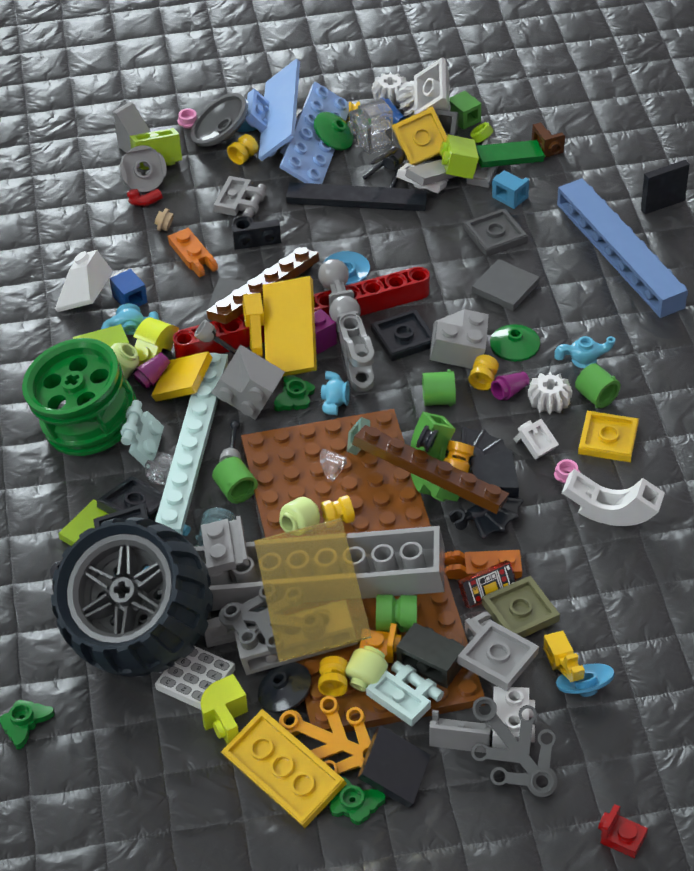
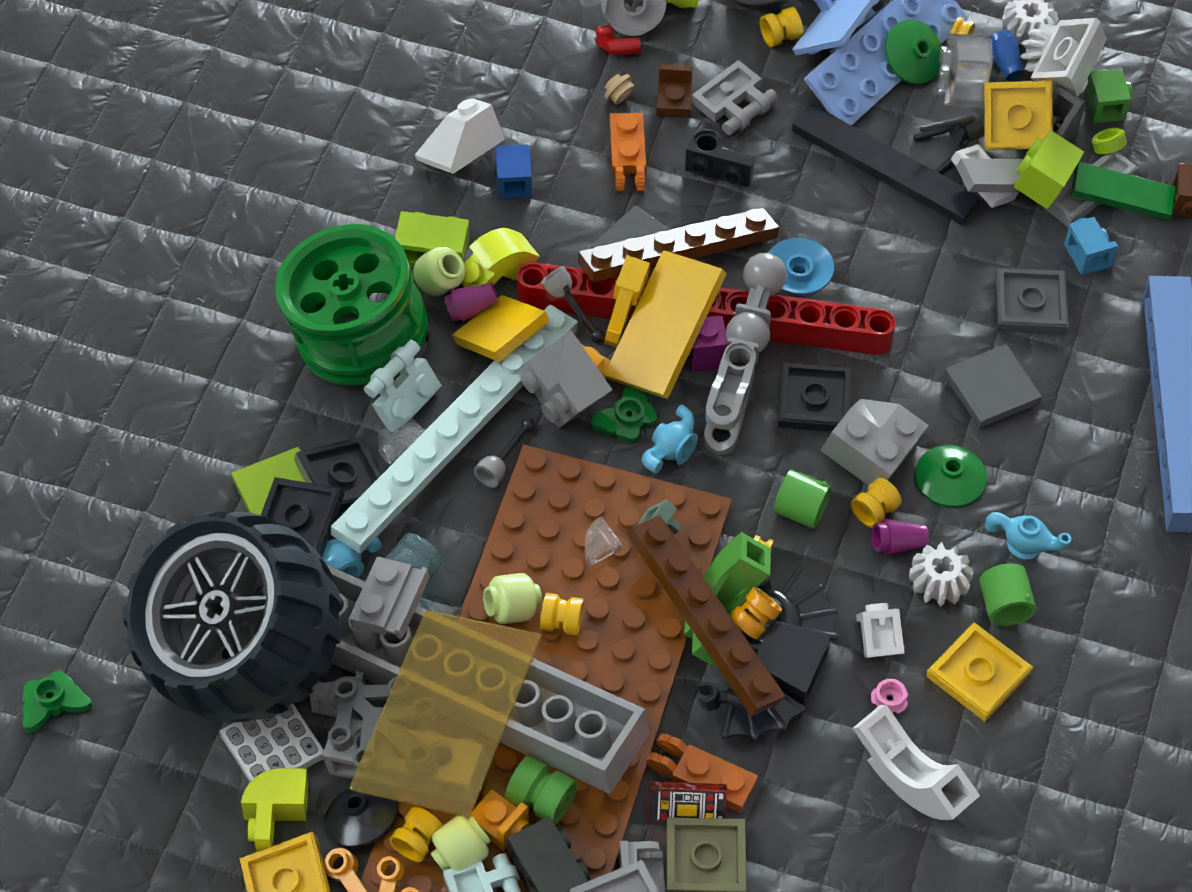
camera: 25 degrees right, 10 degrees up
(129, 317) = (488, 213): medium azure piece -> none
(199, 208) = (674, 91): none -> reddish brown bracket
(234, 480) = (474, 504): bright green piece -> none
(427, 438) = (719, 574): black bush -> none

